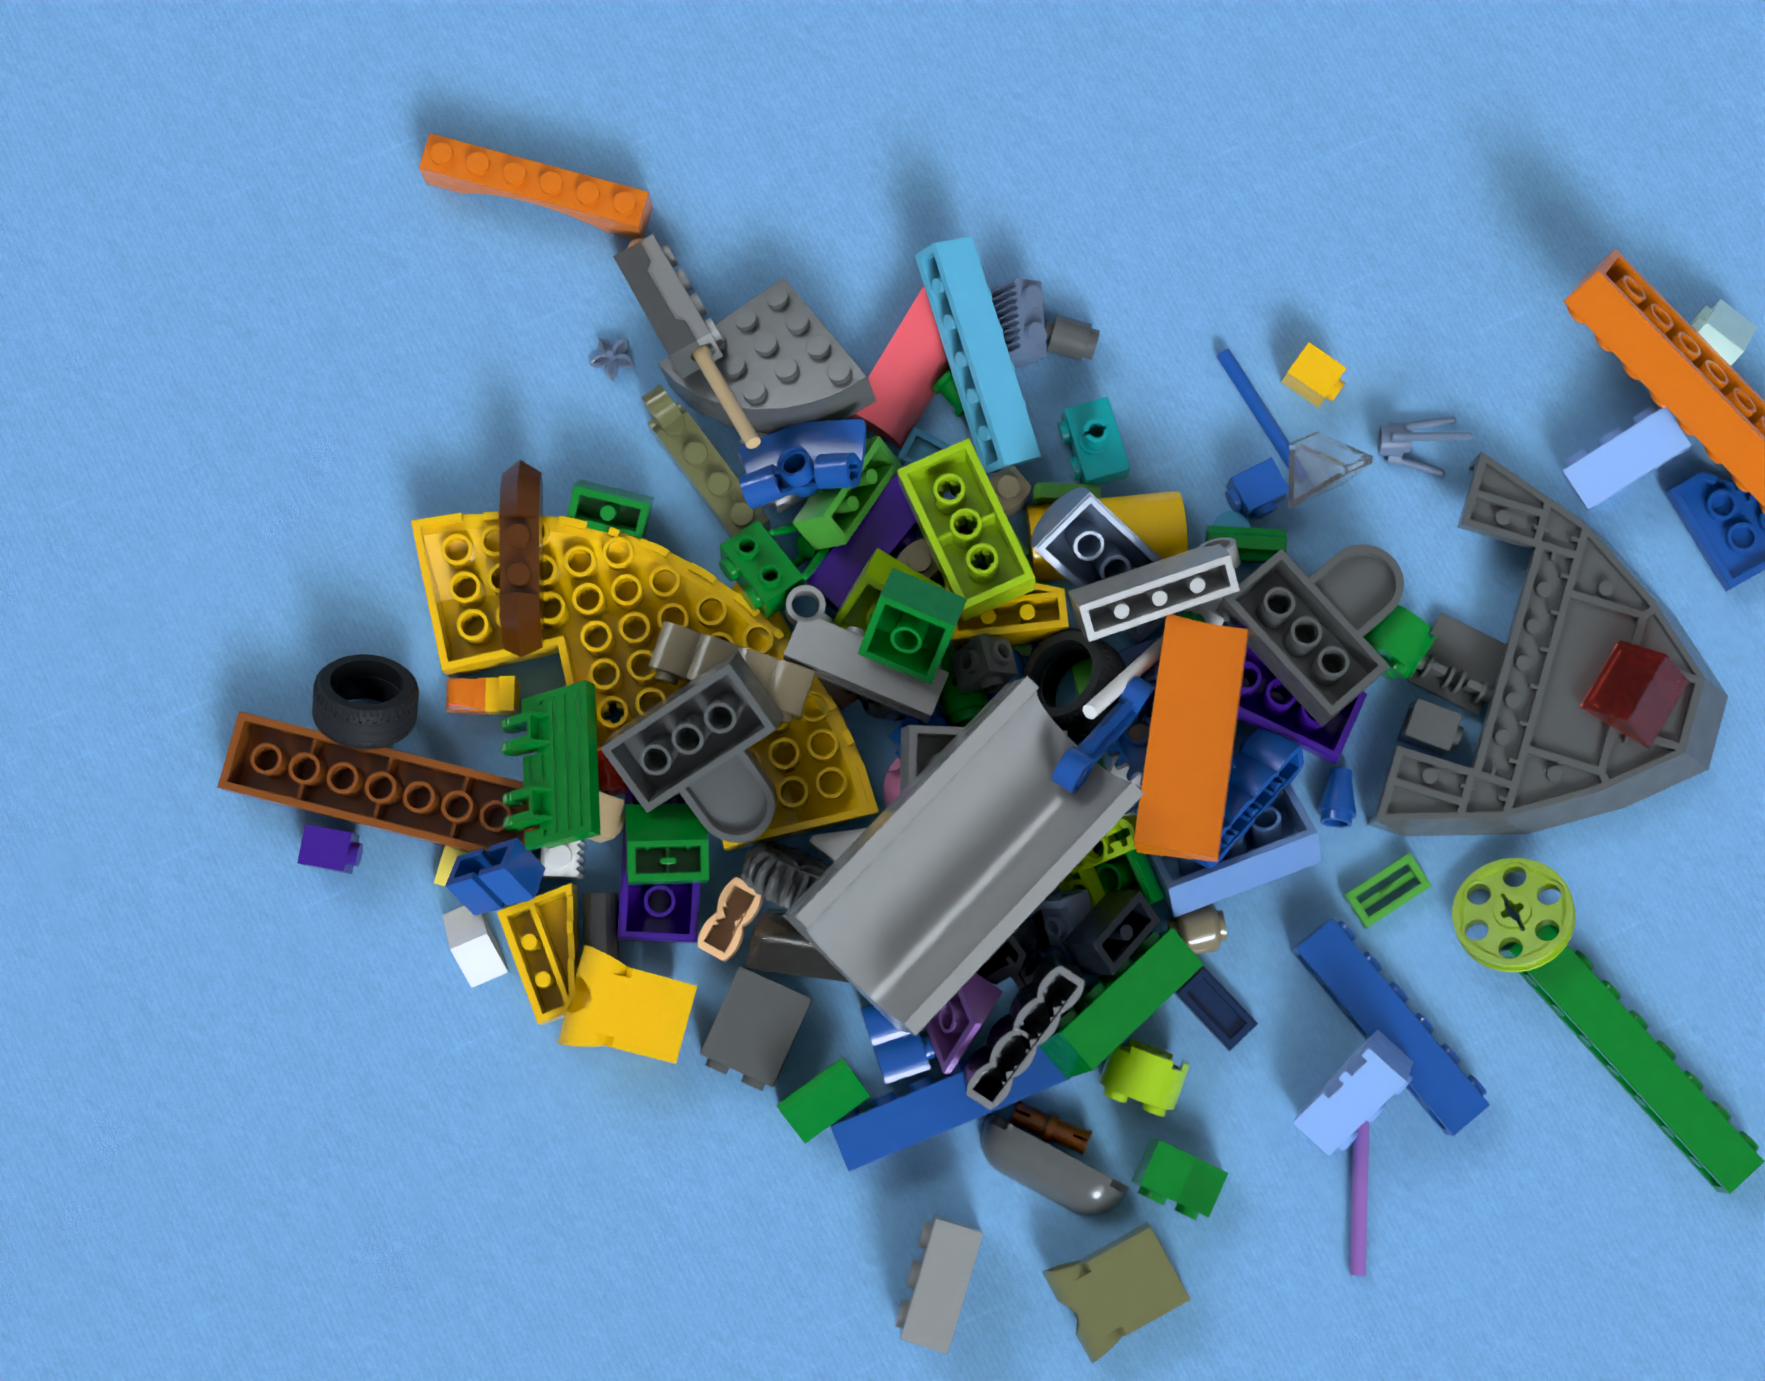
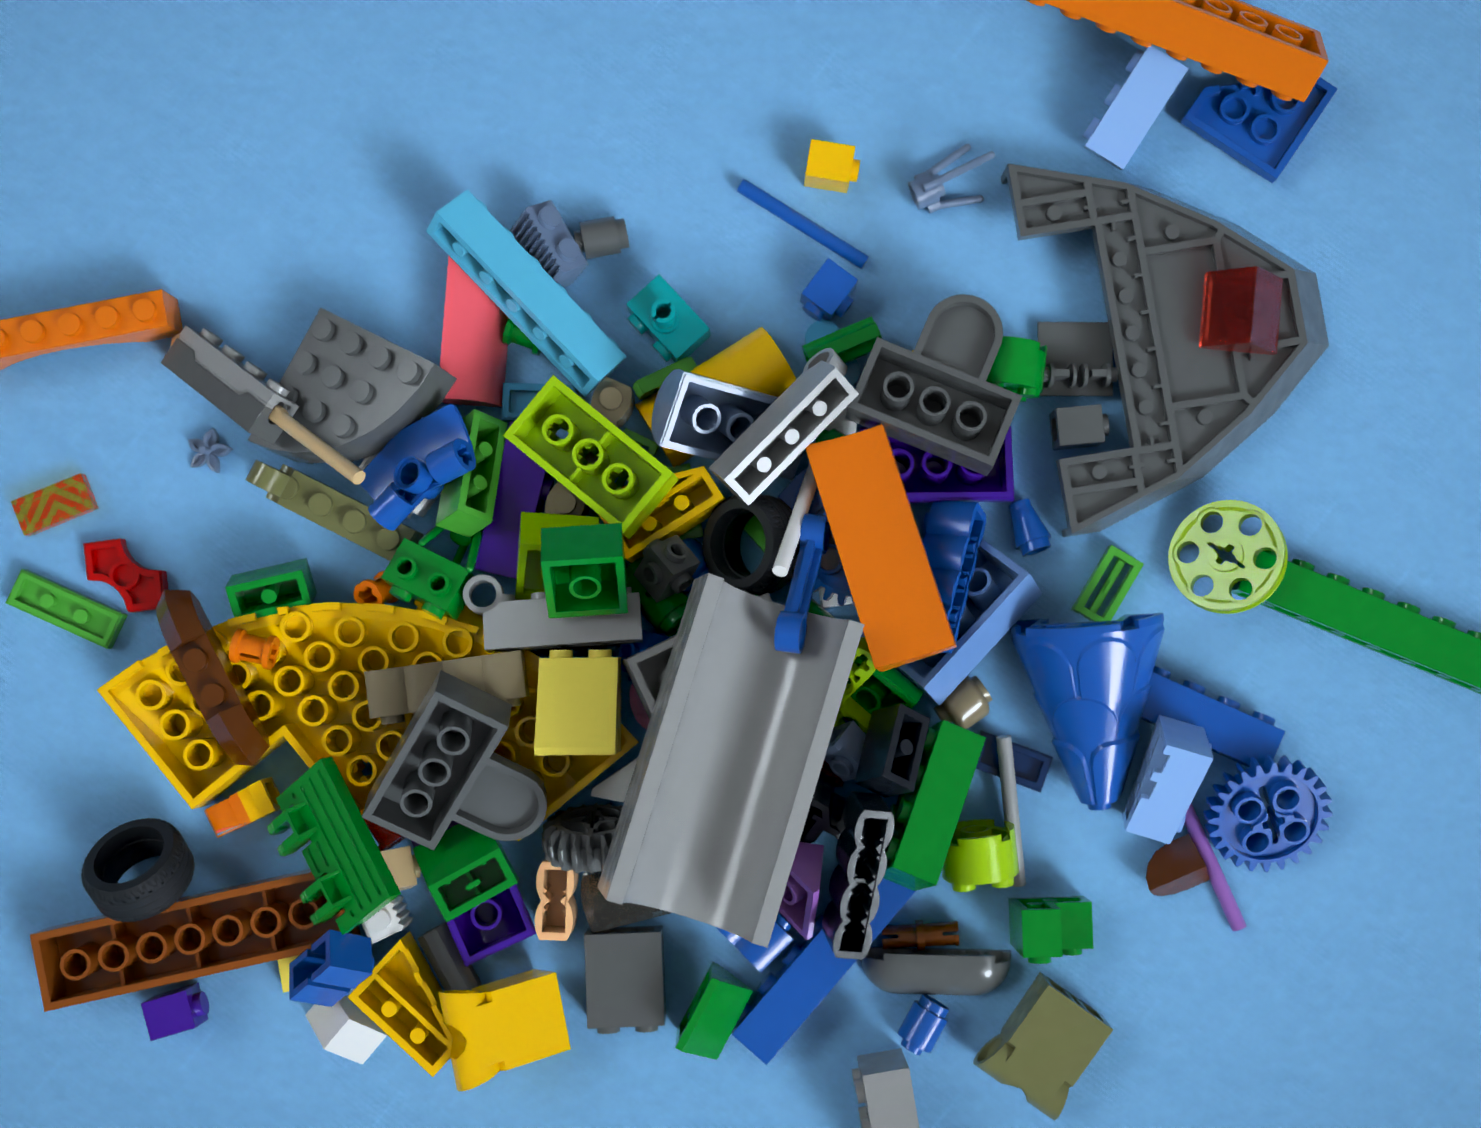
camera: 25 degrees left, 5 degrees up
(412, 436) = (66, 608): none -> bright green tile
(449, 337) = (54, 505): none -> clear yellow tile
(474, 416) = (114, 565): none -> red tile
(573, 553) = (254, 649): none -> orange bush
(704, 556) = (374, 591): none -> orange bush
(844, 746) = (578, 704): none -> light yellow slope
(1012, 1212) = (923, 1025): none -> blue brick
(1196, 1046) = (1010, 799): none -> light grey bar
(1321, 465) = (873, 243): clear slope -> none
(1323, 979) = (1092, 694): none -> blue cone
(1324, 1186) = (1176, 868): none -> reddish brown brick
(1473, 1180) = (1301, 803): none -> blue gear

